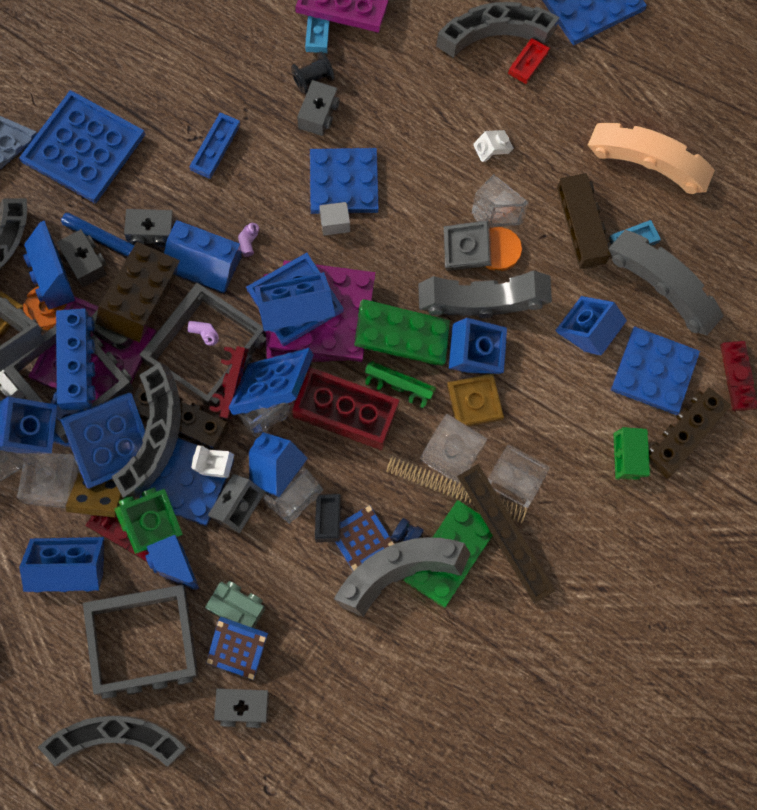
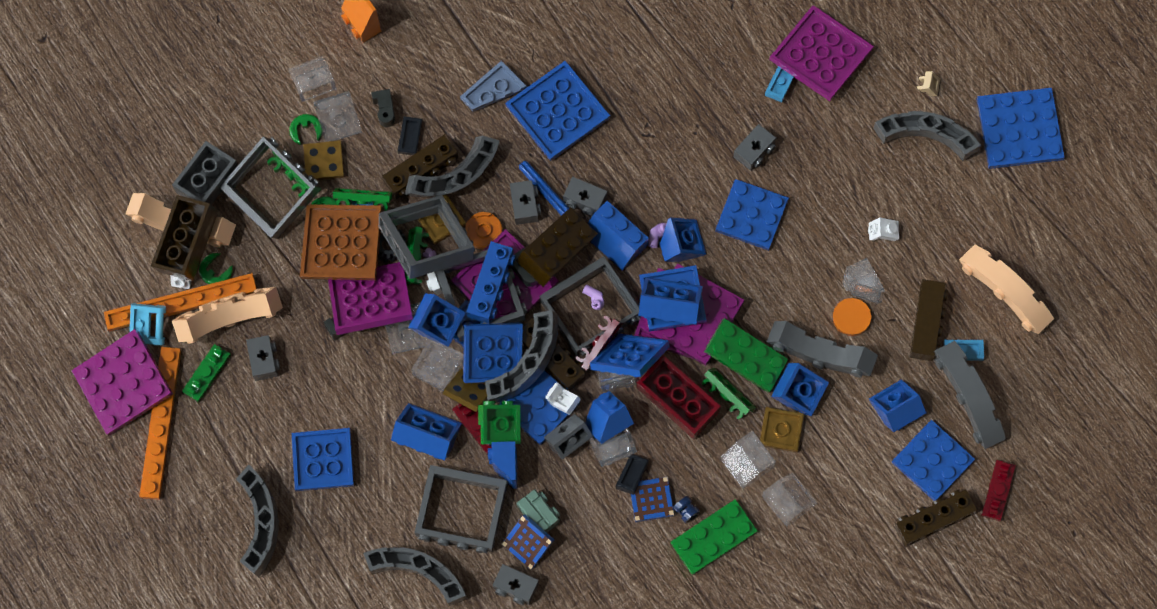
camera: 30 degrees right, 0 degrees up
(47, 268) = (495, 202): blue slope -> none
(215, 145) = (661, 148): blue plate -> none
(277, 235) = (681, 240): none -> blue slope
(313, 71) = (762, 116): black hose -> none
(334, 218) = (731, 243): light grey panel -> none
(389, 467) = (781, 529): tan piece -> none
(398, 563) = (668, 527): dark grey brick -> none
(467, 245) = (827, 305): dark grey tile -> none
(506, 533) = (759, 537): dark brown plate -> none
(528, 60) = (943, 169): red plate -> none
(631, 453) = (884, 516): green hinge -> none

